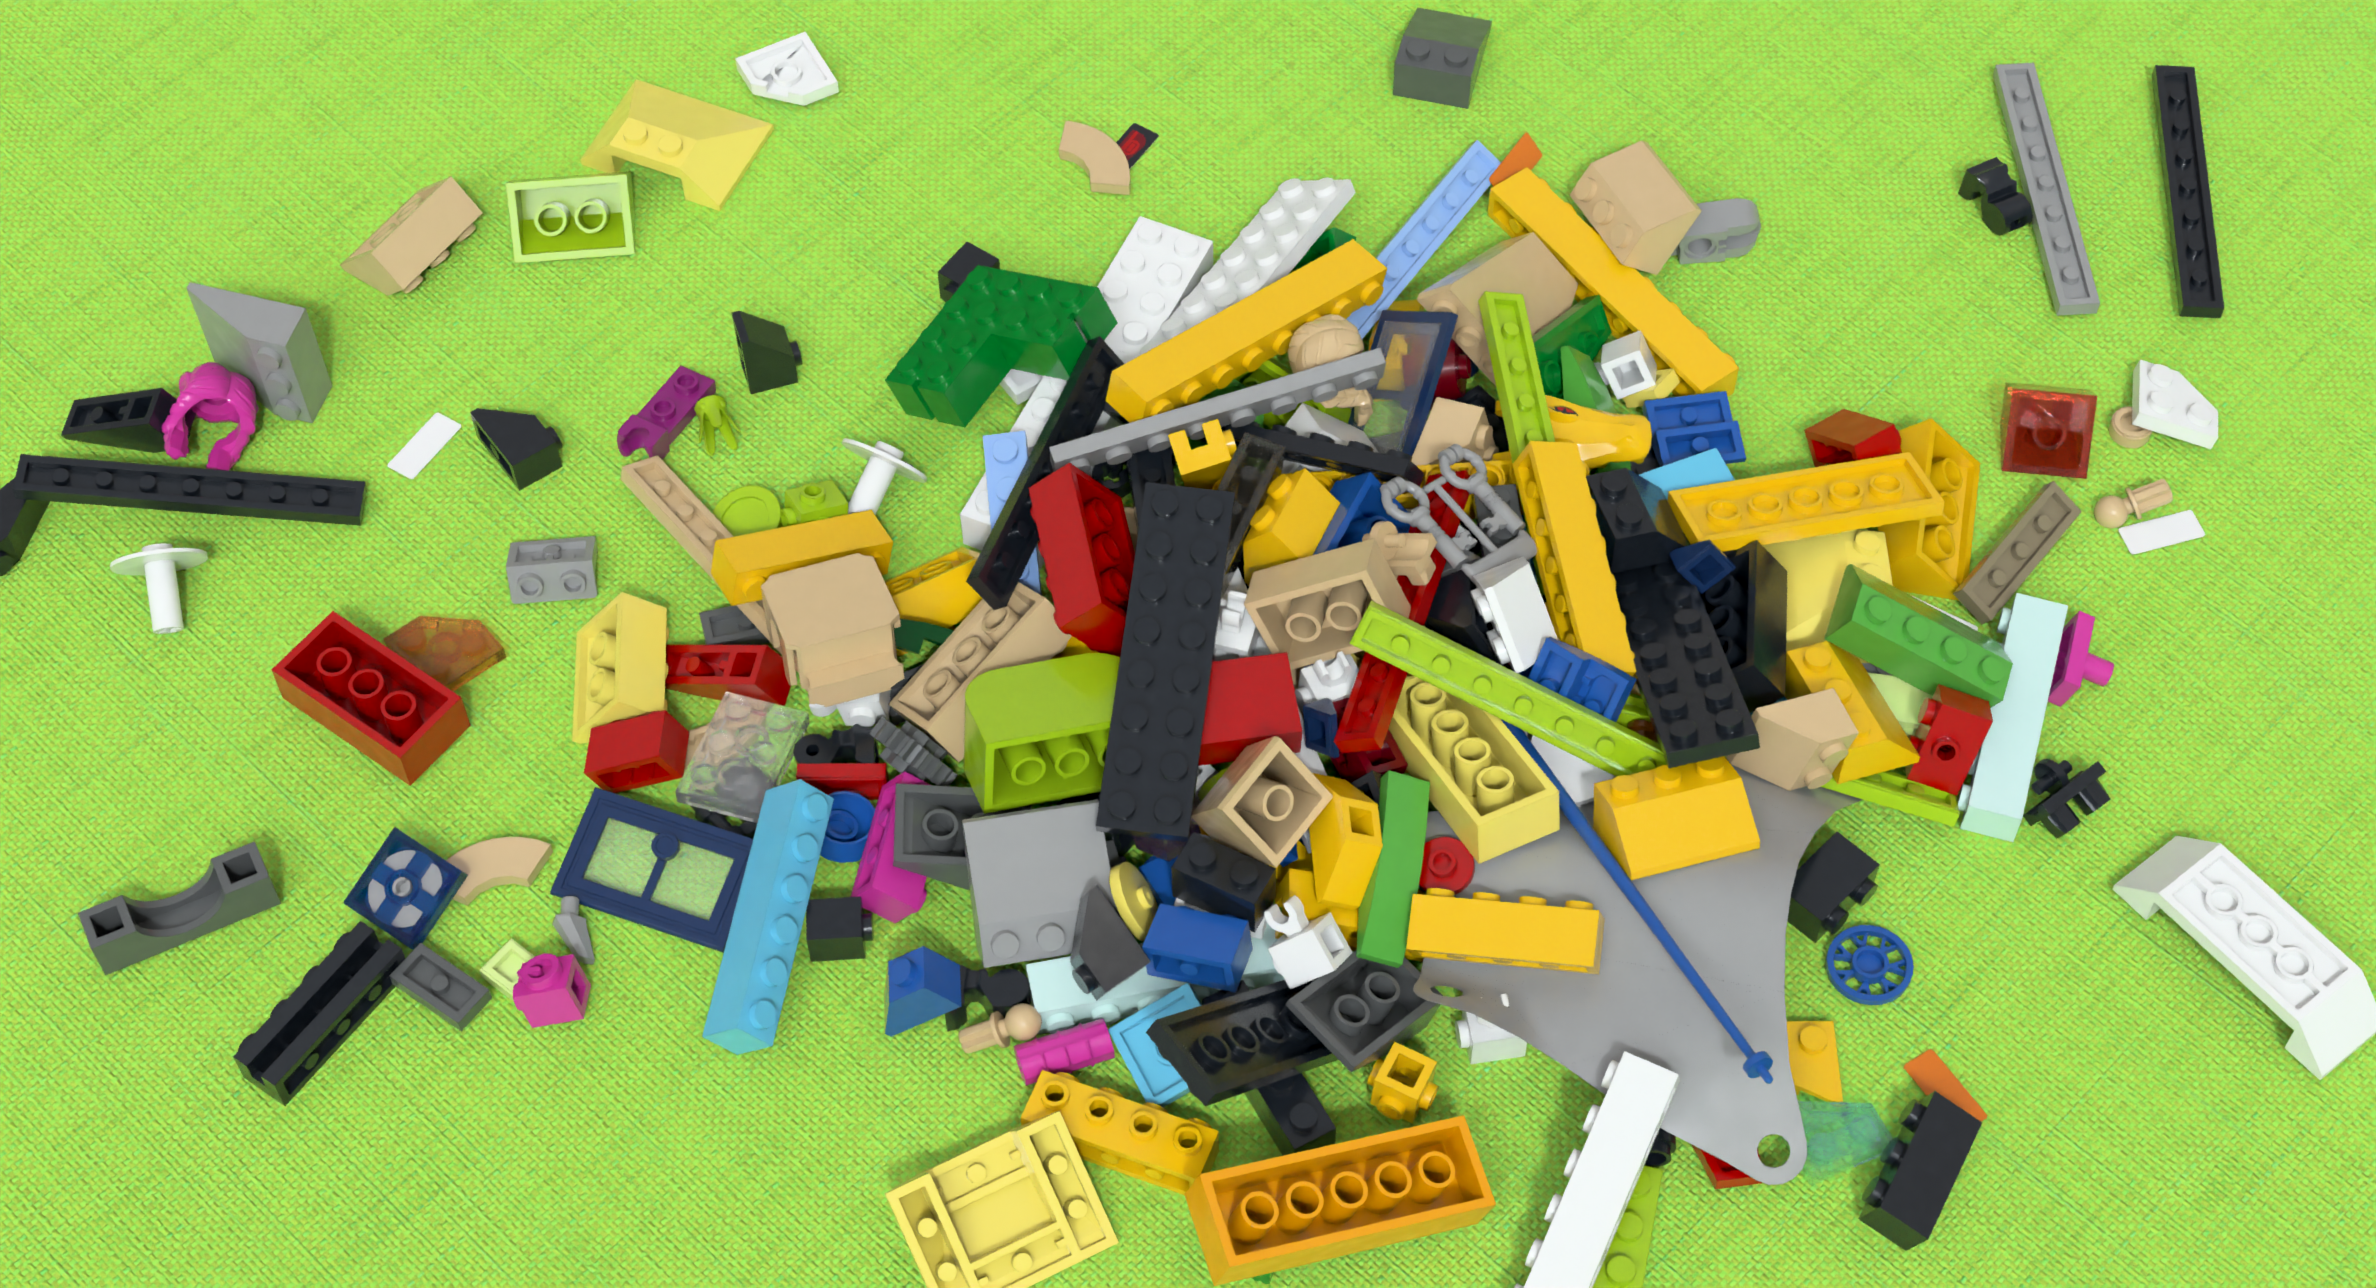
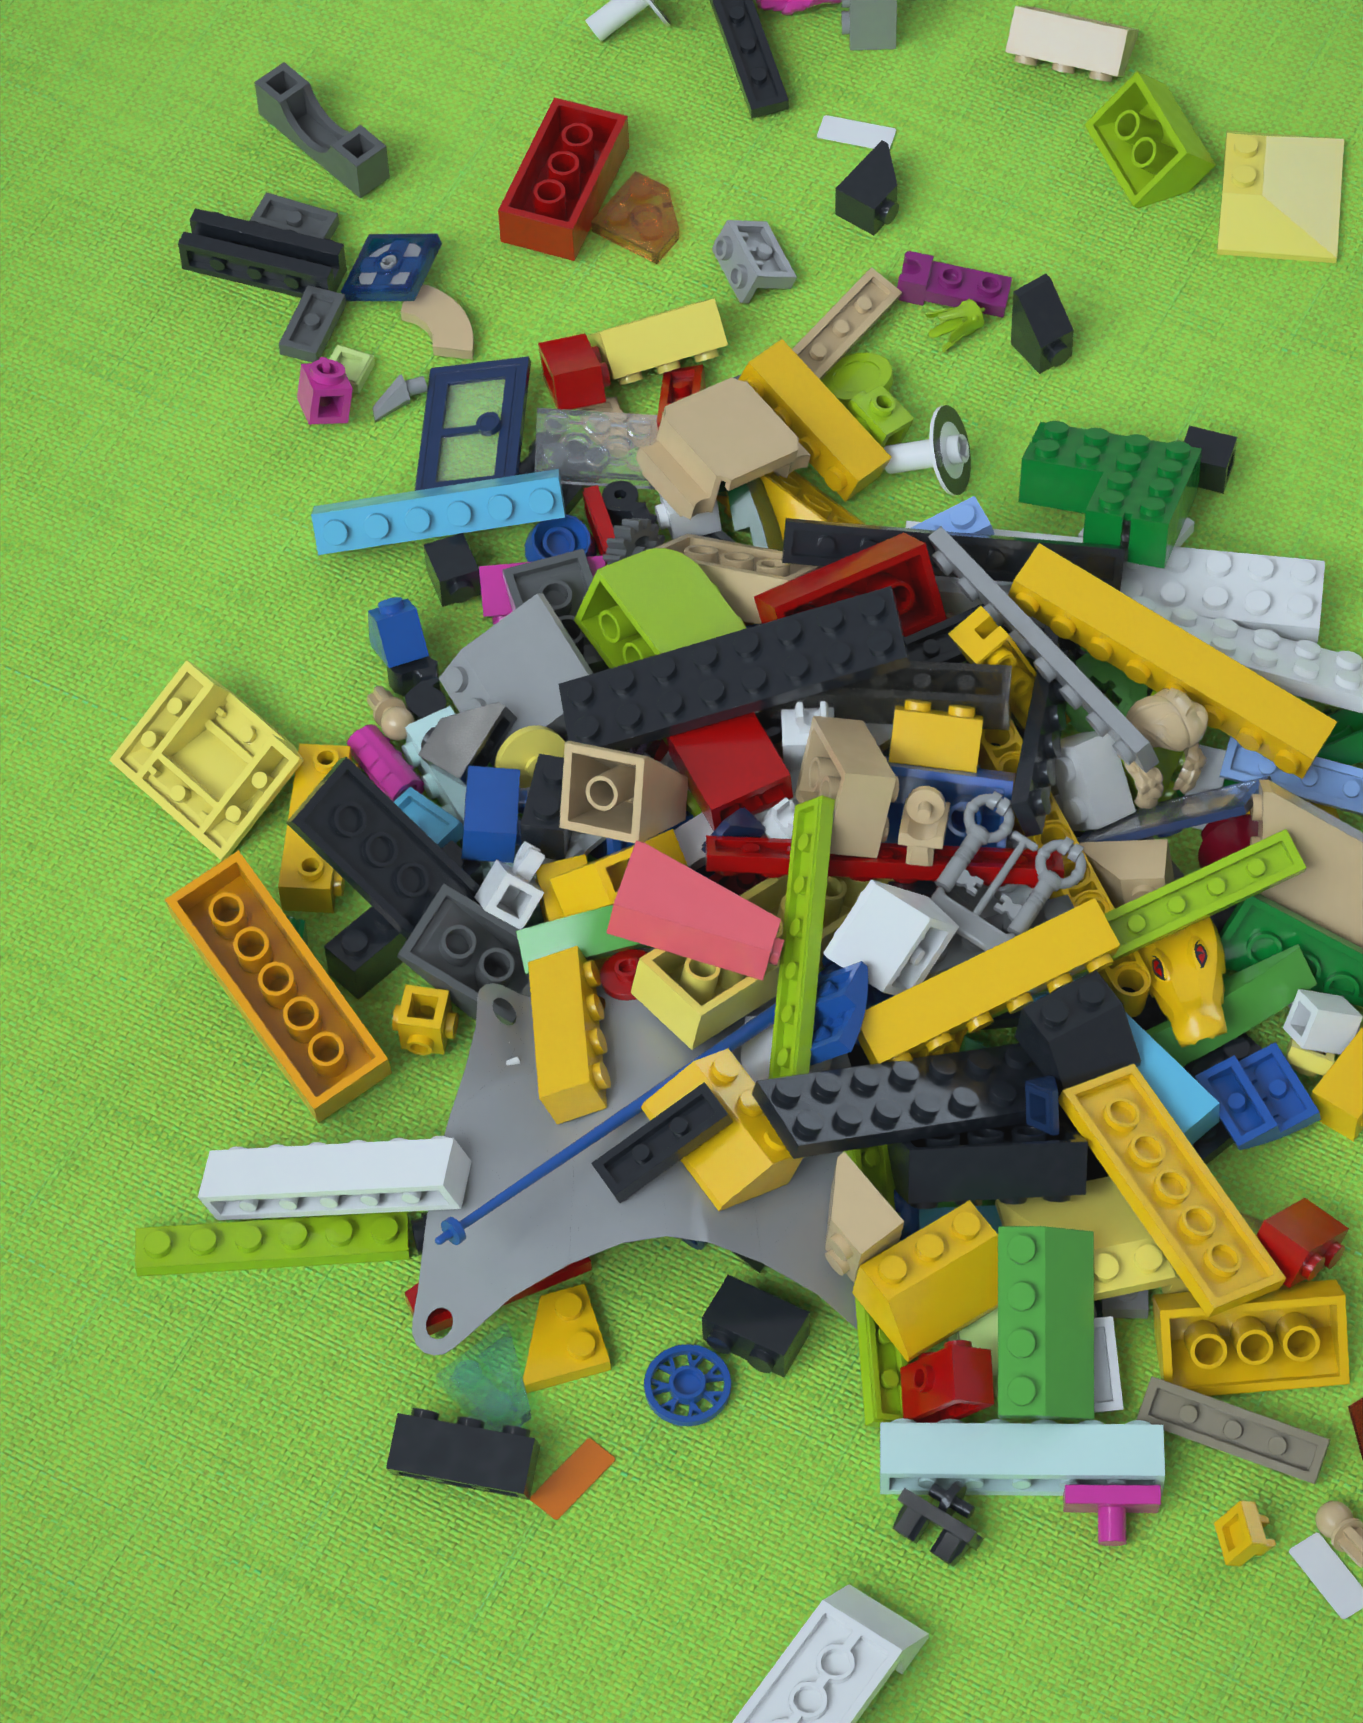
camera: 75 degrees right, 0 degrees up
(283, 970) = (295, 216): none -> dark grey plate
(1441, 769) = (692, 916): none -> coral slope
(1695, 862) = (662, 1142): none -> black plate
(2122, 575) = (1242, 1533): none -> yellow tile

